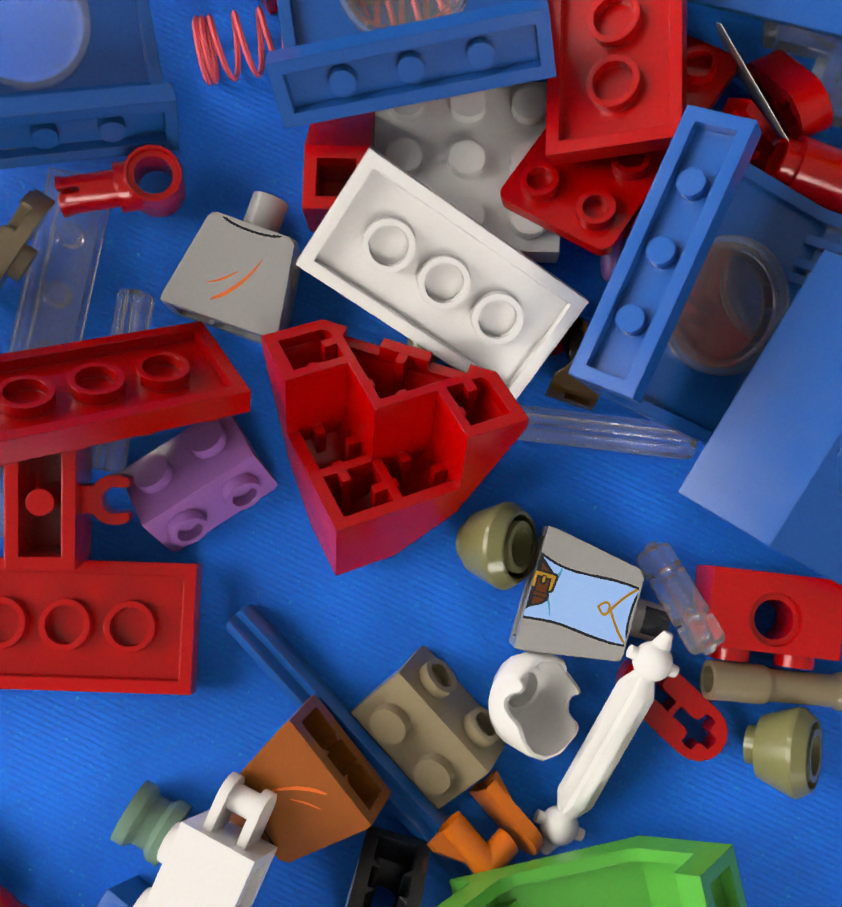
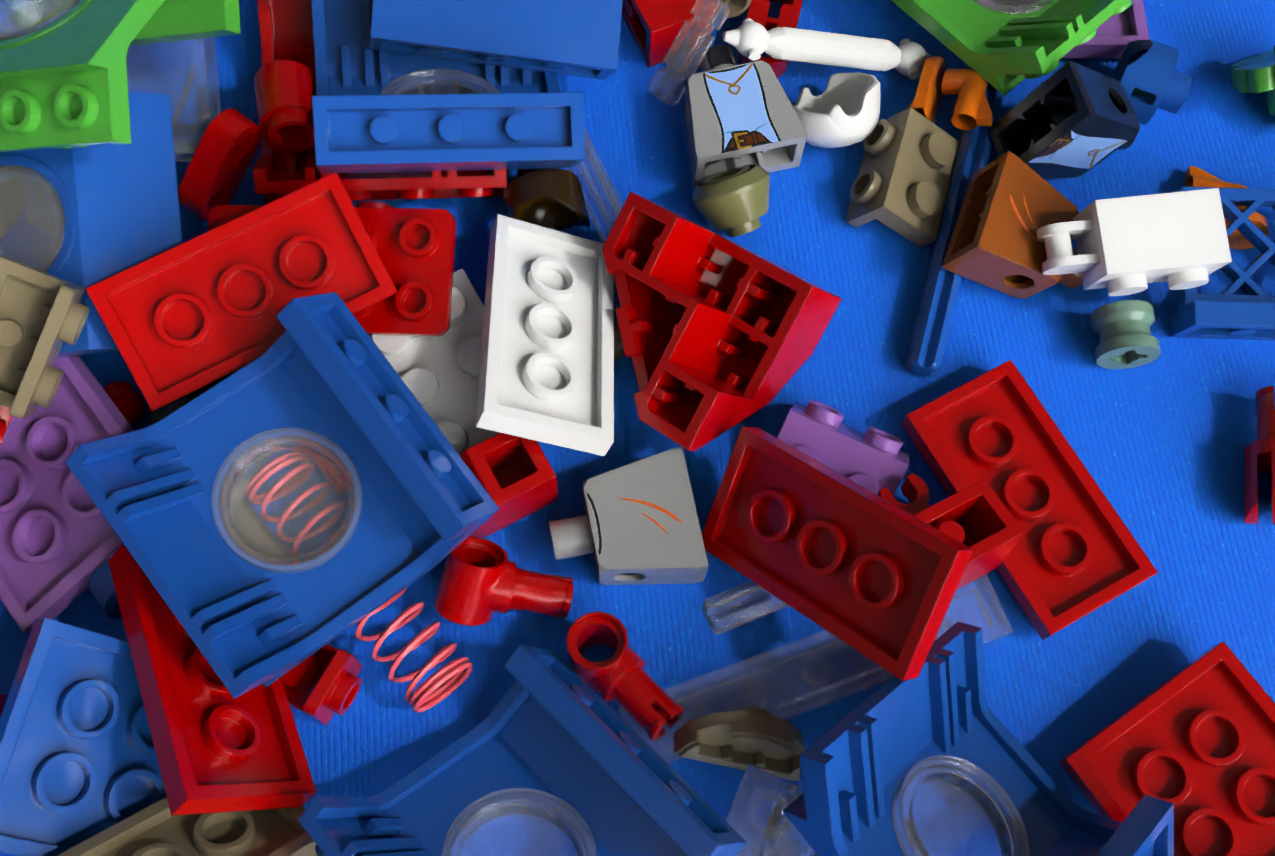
camera: 125 degrees left, 15 degrees down
(252, 140) = (483, 581): none -> red pin
(747, 79) = (230, 186): white sticker -> none

